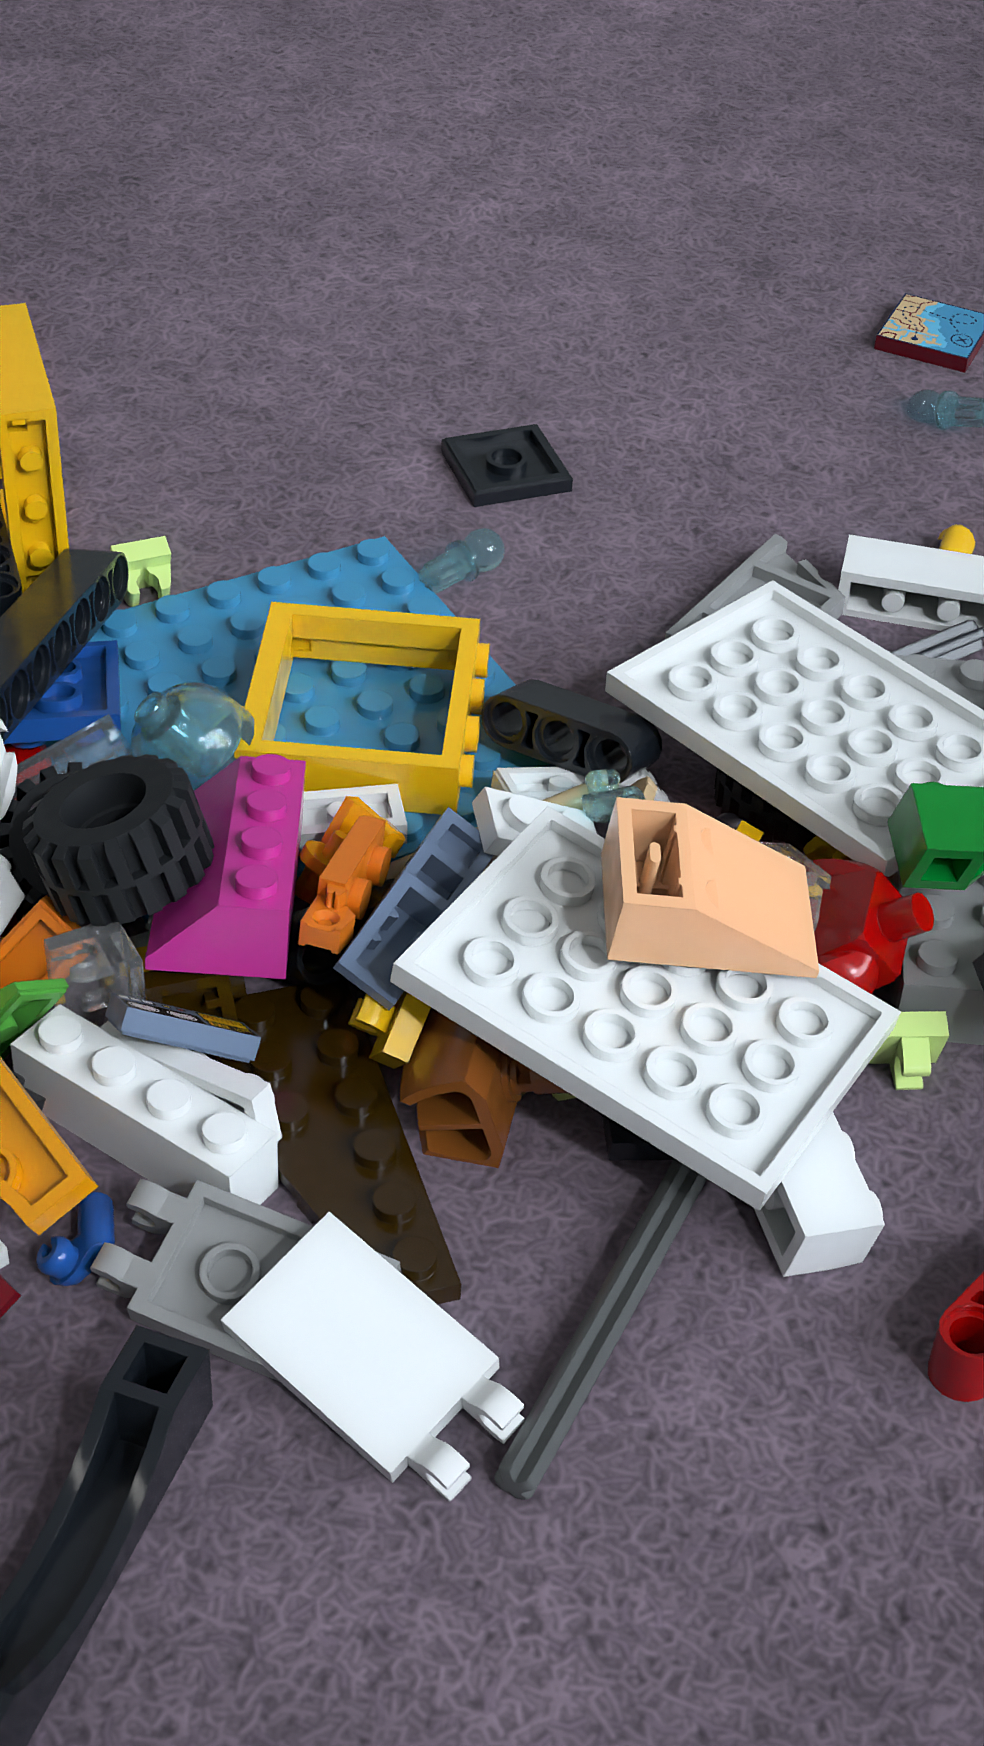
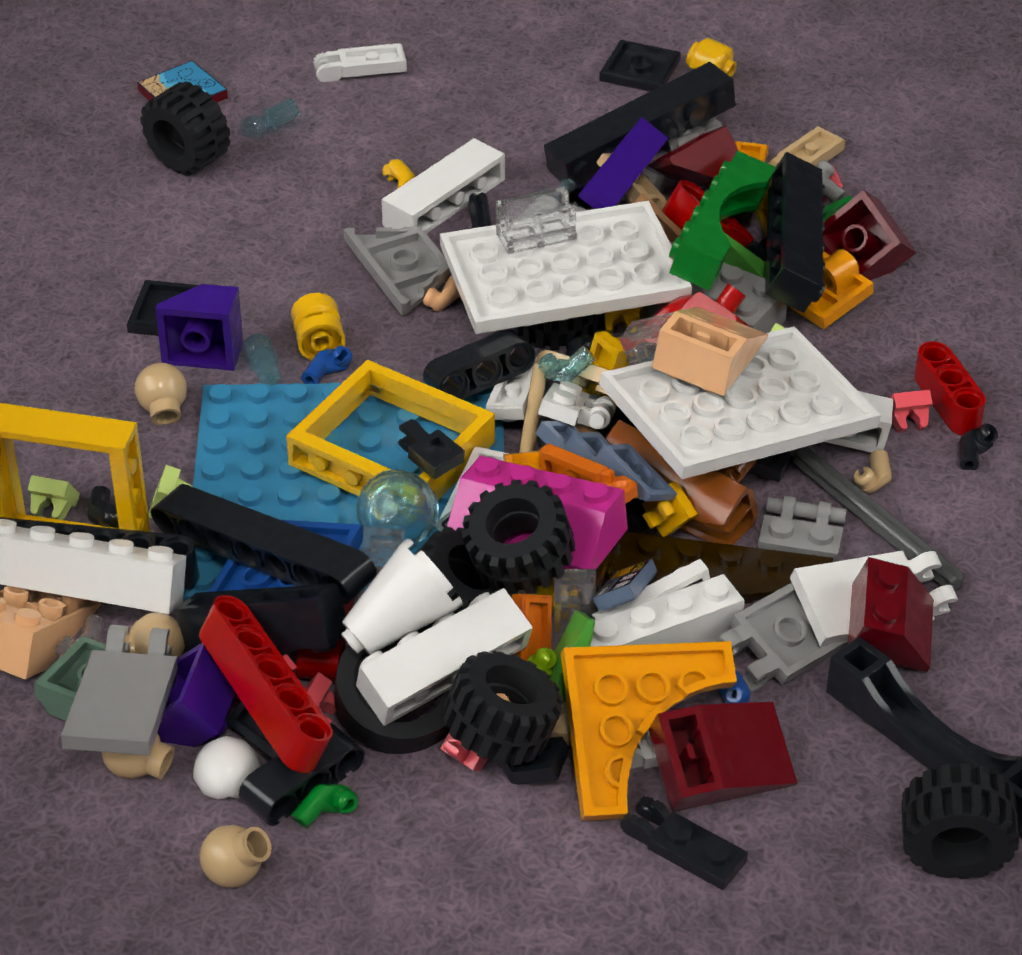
camera: 60 degrees left, 0 degrees up
(84, 488) = (53, 491): none -> yellowish green tile
(99, 532) = (100, 509): none -> black arm
(307, 725) = (431, 452): none -> black plate
(311, 1393) = (892, 613): none -> dark red slope
(323, 499) = (161, 392): none -> tan piece
(453, 476) = (201, 327): none -> dark purple slope
(493, 1233) = (800, 536): none -> light grey plate
(505, 616) = (326, 363): none -> blue arm
(553, 577) = (317, 324): none -> yellow wheel
(715, 1286) = (877, 475): none -> tan arm
(816, 335) = (185, 128): none -> black tyre
(860, 642) = (535, 220): none -> clear hinge
(901, 1253) = (911, 404): none -> coral tile
(903, 1396) = (974, 443): none -> black arm

